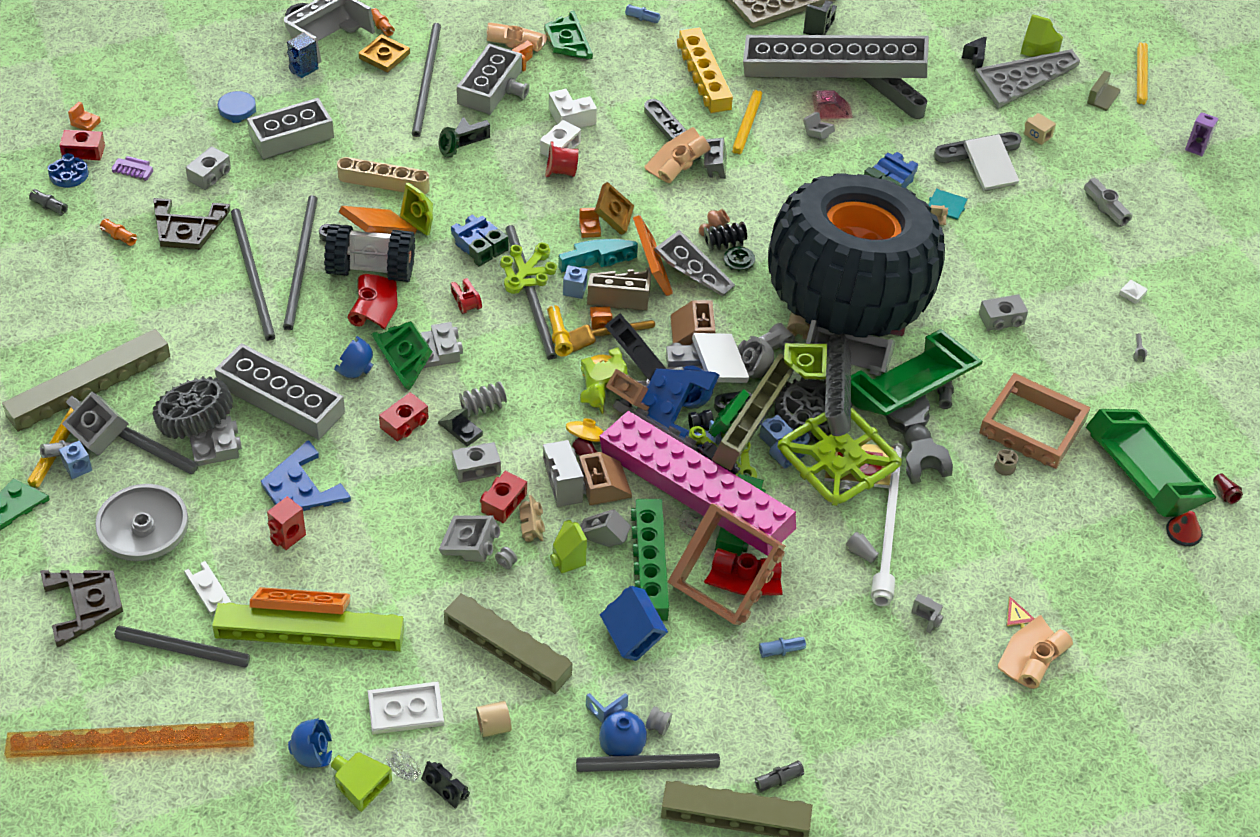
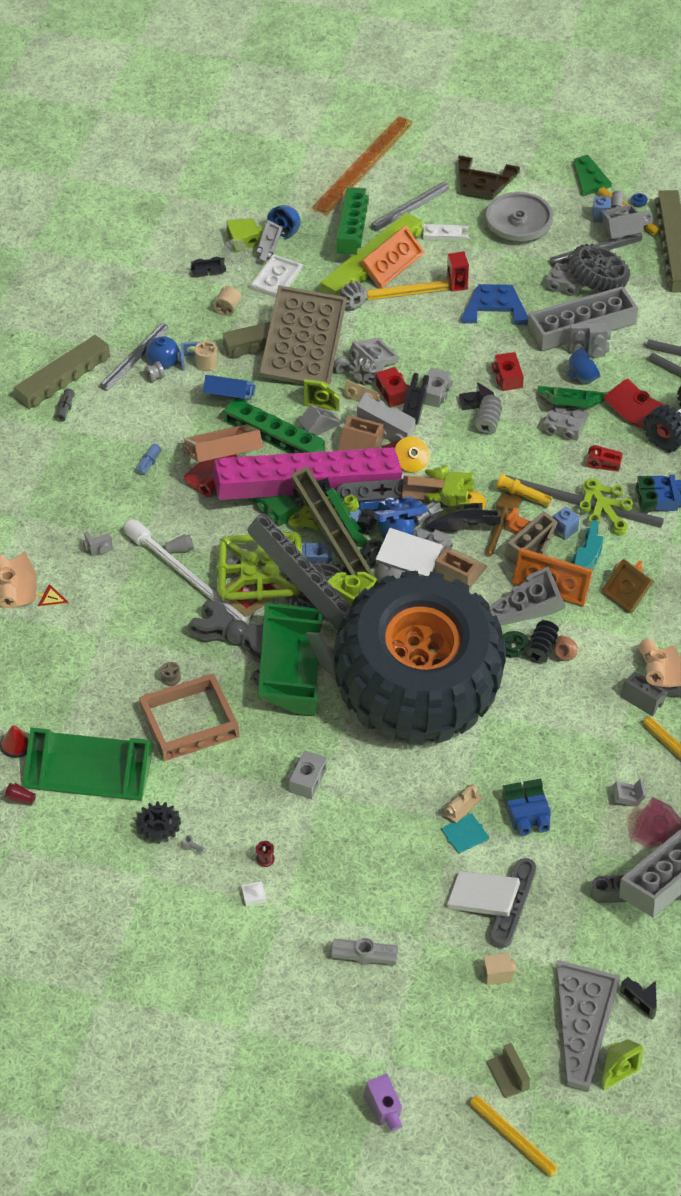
camera: 130 degrees right, 0 degrees up
(31, 446) = (639, 200): none -> blue plate
(262, 680) = (352, 221): none -> green brick
(311, 362) = (590, 337): none -> light grey plate
(336, 570) = (408, 290): none -> yellow axle
(361, 740) = (268, 241): none -> light grey hinge
(395, 600) = (355, 294): none -> light grey gear
(503, 598) = (303, 336): none -> dark tan plate
(506, 528) = (367, 366): none -> light grey gear
(514, 459) = (415, 397): none -> black hinge
(598, 682) = (206, 355): none -> tan piece
(1098, 298) = (268, 853): none -> dark red bush
(1147, 379) = (158, 822): none -> black gear

